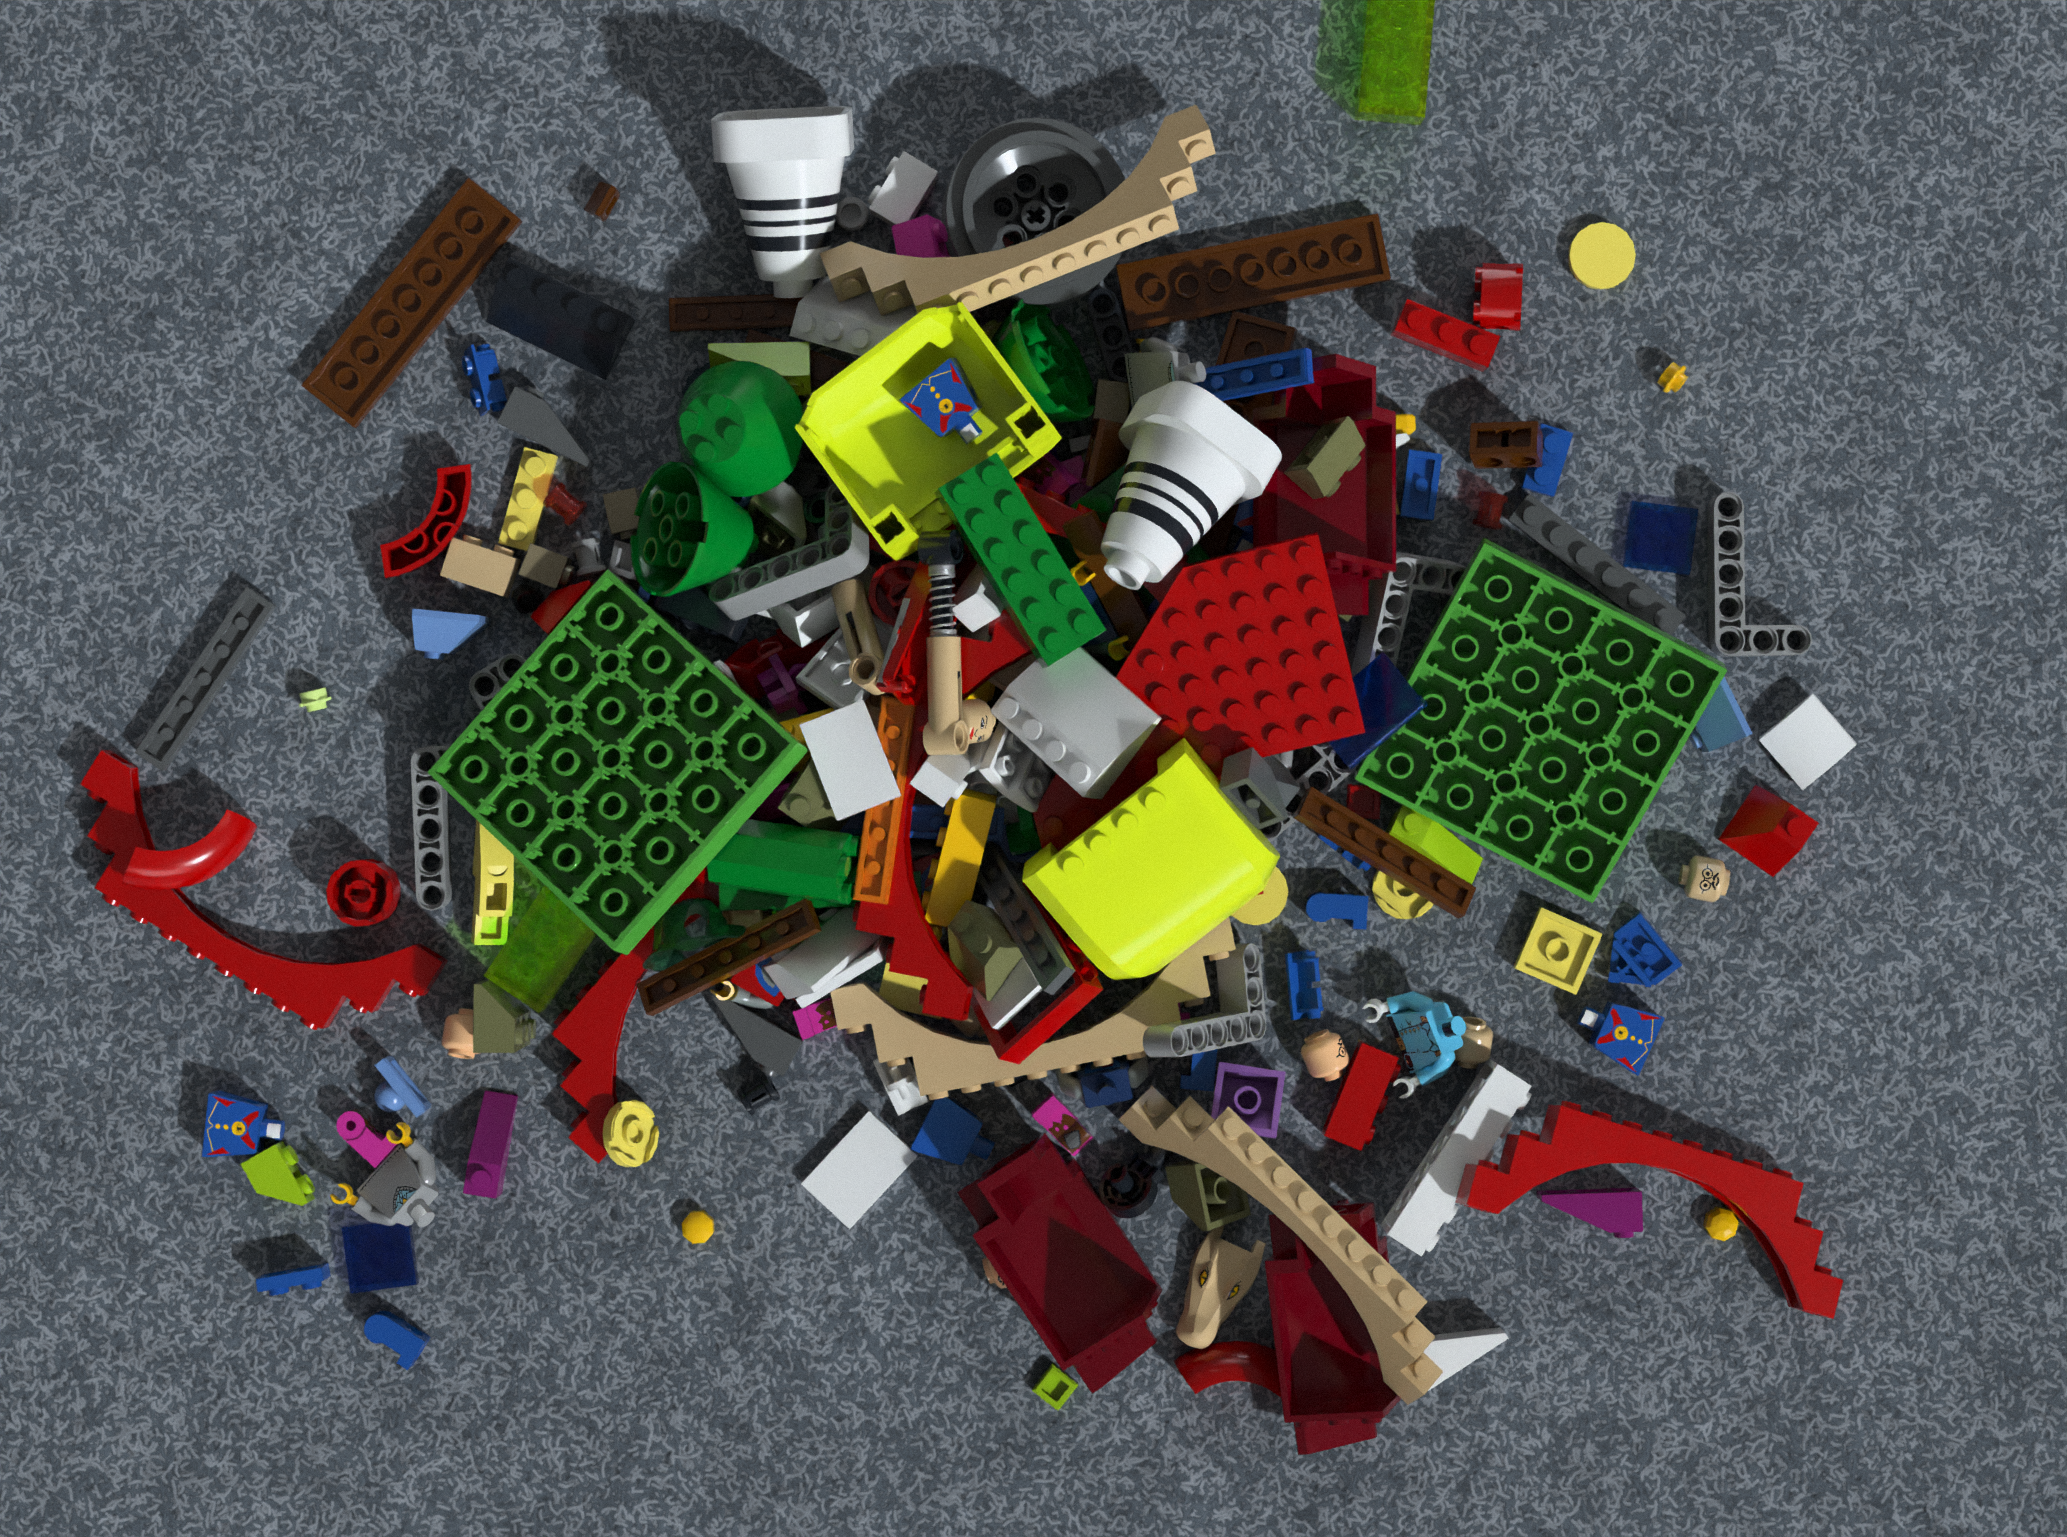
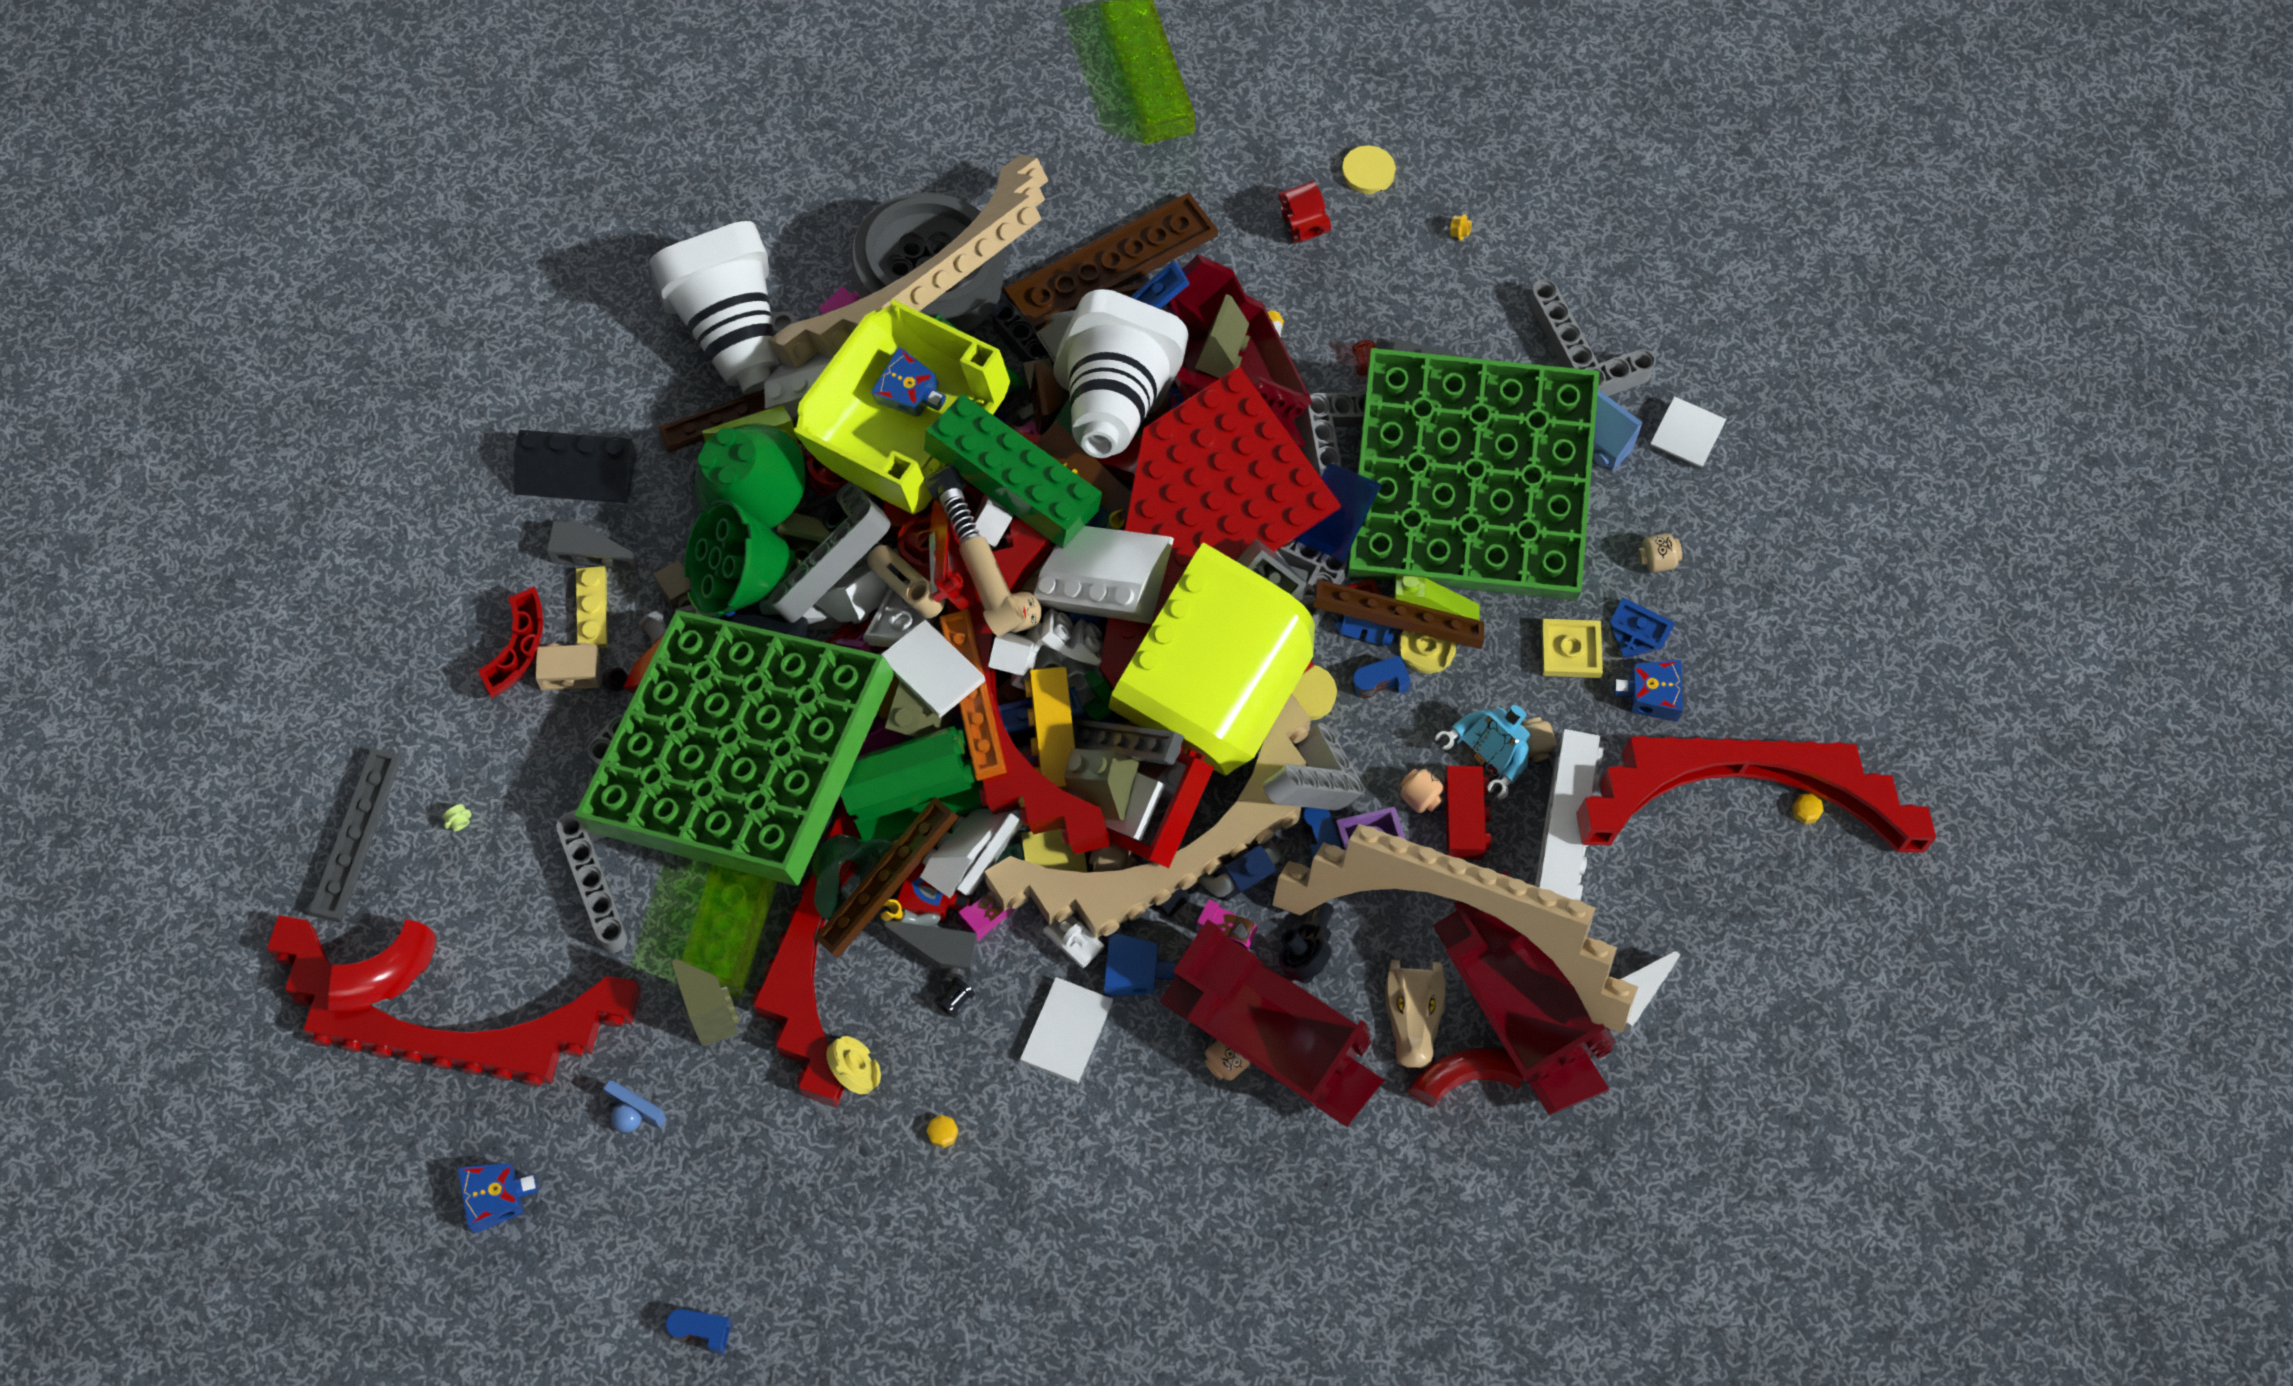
camera: 20 degrees left, 25 degrees down
(277, 1175) = (541, 1223): lime slope -> none
(307, 1277) = (574, 1318): blue plate -> none
(361, 1135) = (615, 1162): dark pink leg -> none
(363, 892) = (548, 951): red brick -> none
(379, 1256) = (660, 1261): clear blue plate -> none
(399, 1187) = (659, 1188): light grey torso -> none
(412, 303) = (447, 499): reddish brown plate -> none
(444, 632) = (555, 717): medium blue slope -> none
(459, 1034) = (676, 1040): light nougat head -> none
(479, 367) = (518, 523): blue hinge -> none
(491, 1145) = (731, 1128): magenta slope -> none
(493, 889) = (660, 901): light yellow slope -> none
(547, 567) = (623, 647): dark tan brick -> none
(565, 504) = (624, 598): clear red bush -> none
(602, 201) = (582, 377): reddish brown slope -> none
(903, 191) = (816, 287): white brick -> none
(1055, 1386) = (1313, 1151): lime tile -> none
(1206, 1195) = (1372, 929): olive slope -> none
(1301, 971) = (1385, 755): blue hinge -> none
(1420, 485) = (1305, 358): blue plate -> none
(1445, 335) = (1276, 252): red brick -> none
(1506, 444) = (1357, 304): reddish brown brick -> none
(1555, 449) = (1393, 313): blue plate -> none
(1609, 1209) = (1704, 829): magenta slope -> none
(1660, 538) = (1505, 335): clear blue plate -> none
(1767, 830) = (1691, 503): red slope -> none

